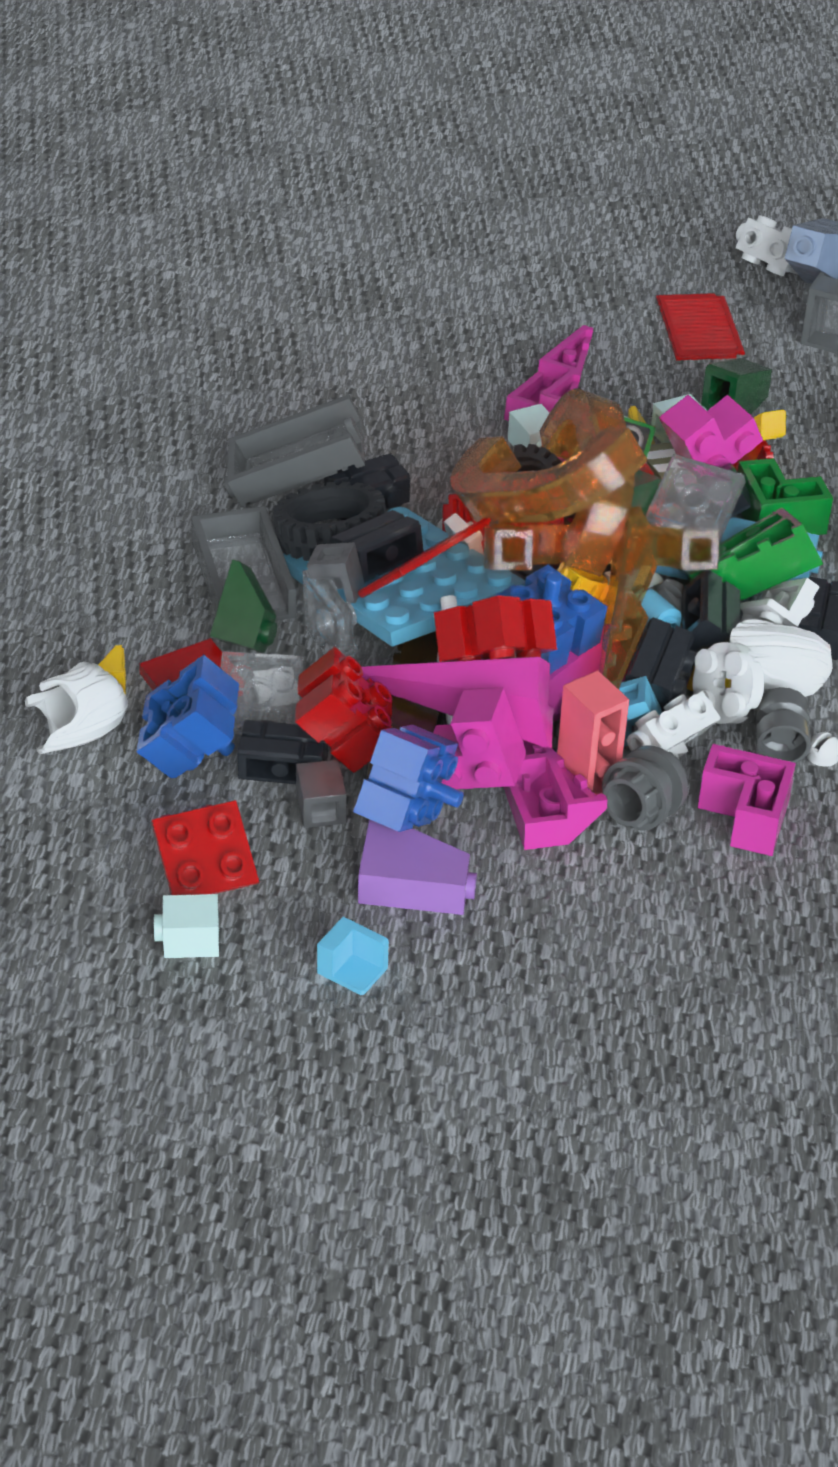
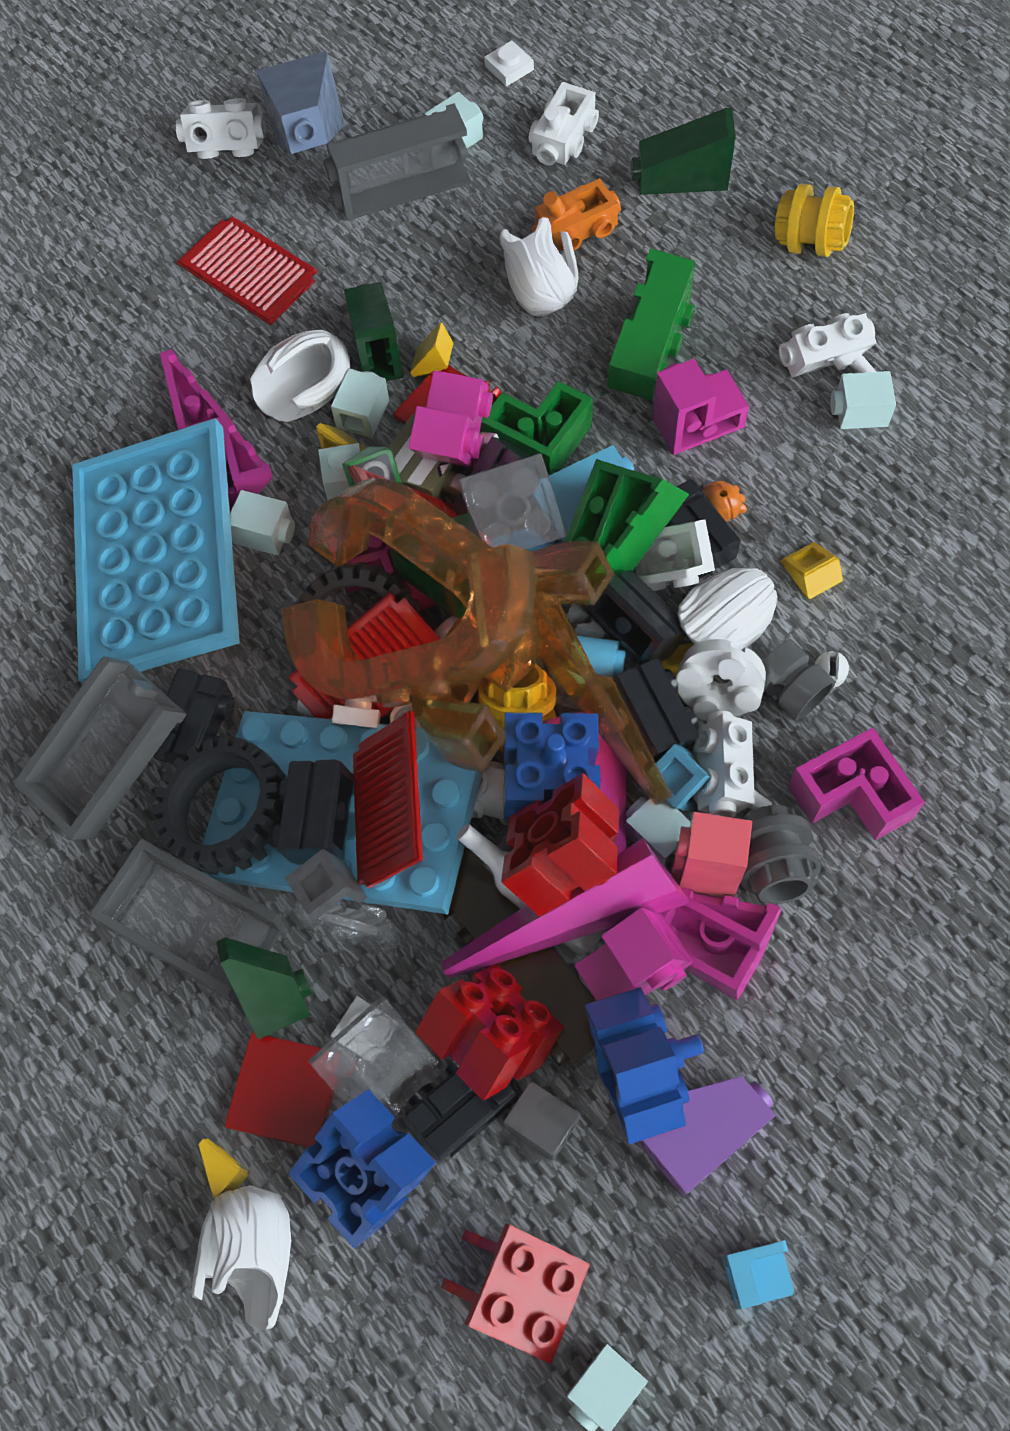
camera: 40 degrees left, 25 degrees up
(455, 397) = (154, 551): none -> medium azure plate
(656, 377) = (300, 375): none -> white hair

